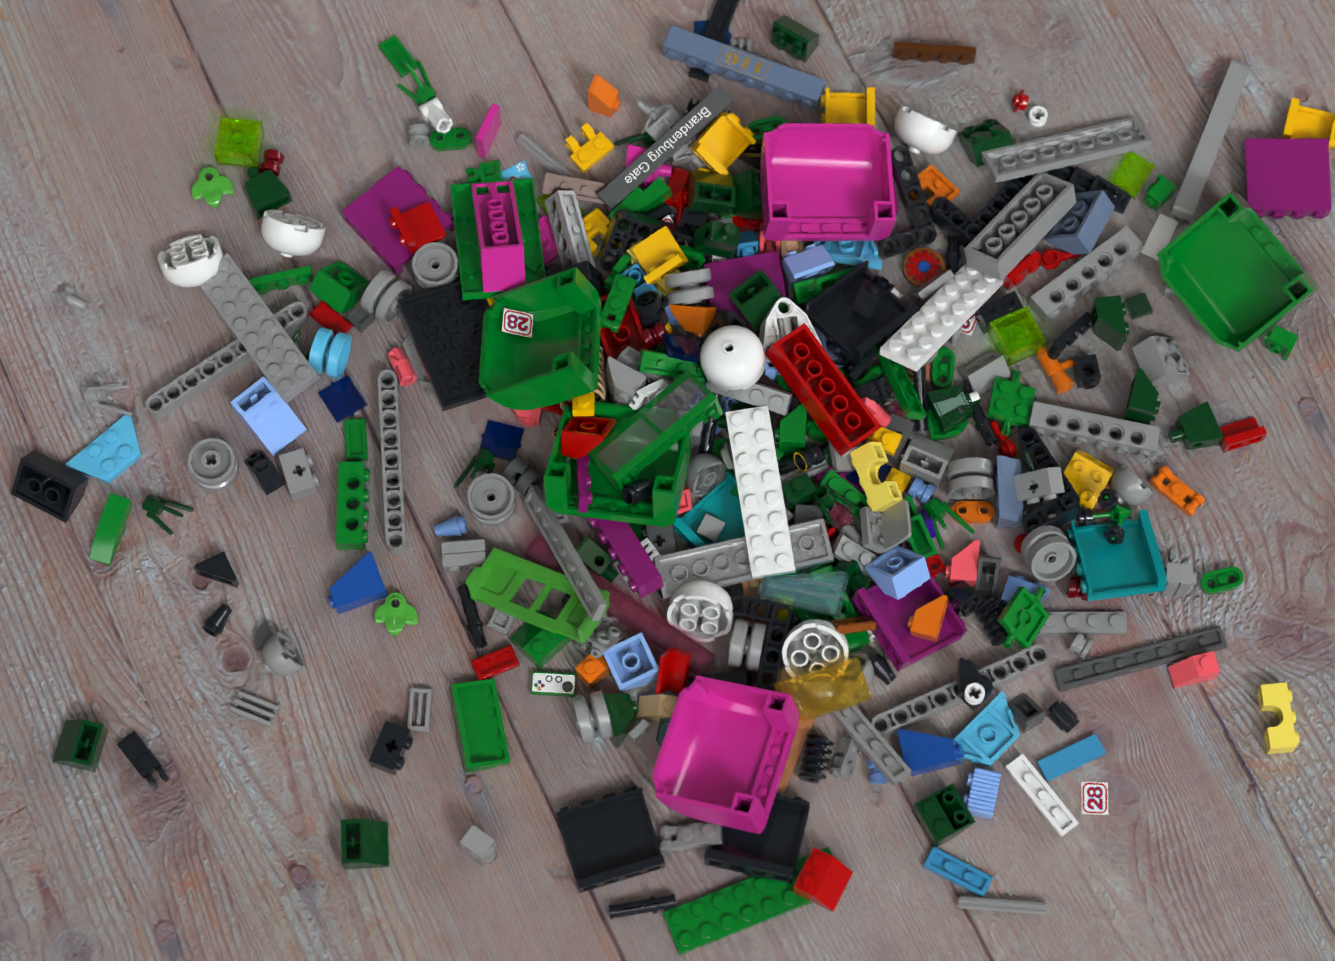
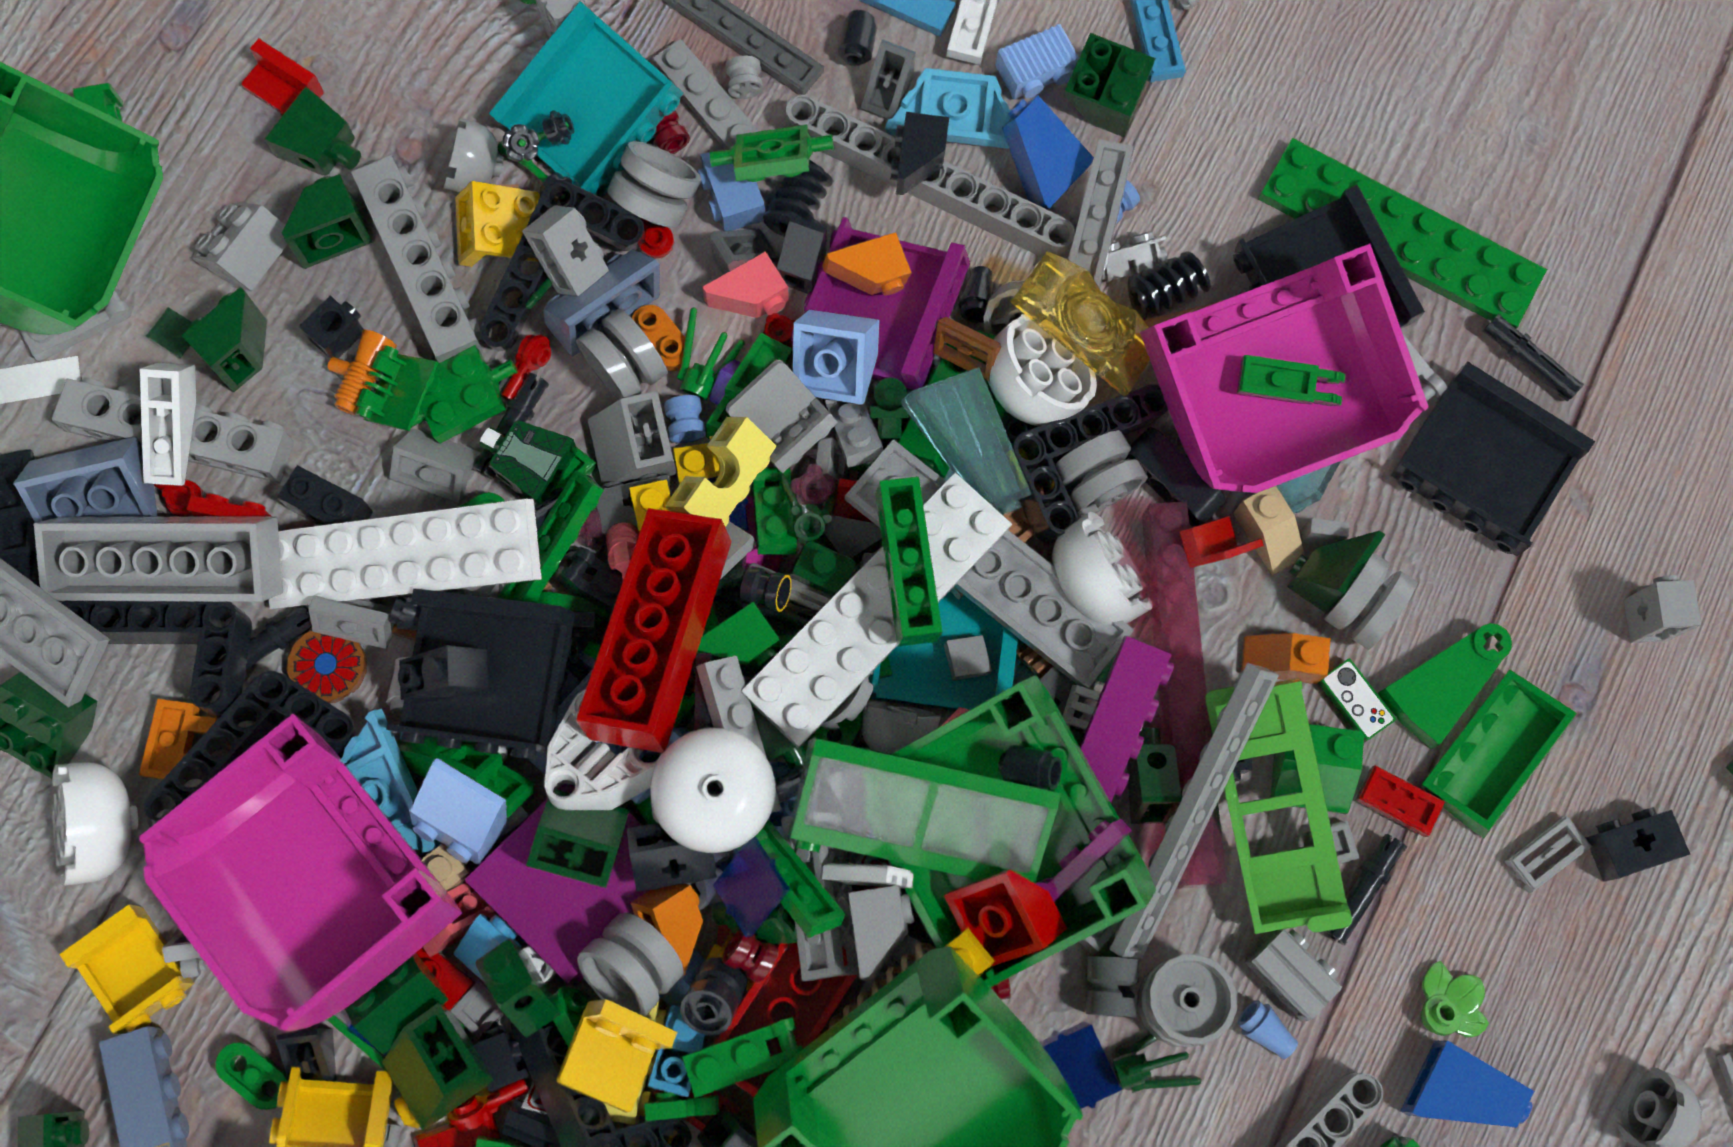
camera: 135 degrees left, 5 degrees up
(528, 723) = (1442, 688): none -> green piece
(605, 640) = (1232, 661): light grey hinge -> none
(632, 663) = (1249, 607): light blue slope -> none
(721, 763) = (1286, 381): none -> green hinge
(767, 506) = (908, 561): none -> green brick
(822, 880) = (1320, 161): red slope -> none
(977, 687) = (934, 112): white bush -> none
(1016, 336) = (348, 449): clear neon green brick -> none
(1032, 375) = (399, 391): none -> green hinge
(1070, 335) = (294, 381): black plate -> none
(1086, 268) = (167, 421): none -> white slope
(1176, 491) = (428, 108): orange plate -> none

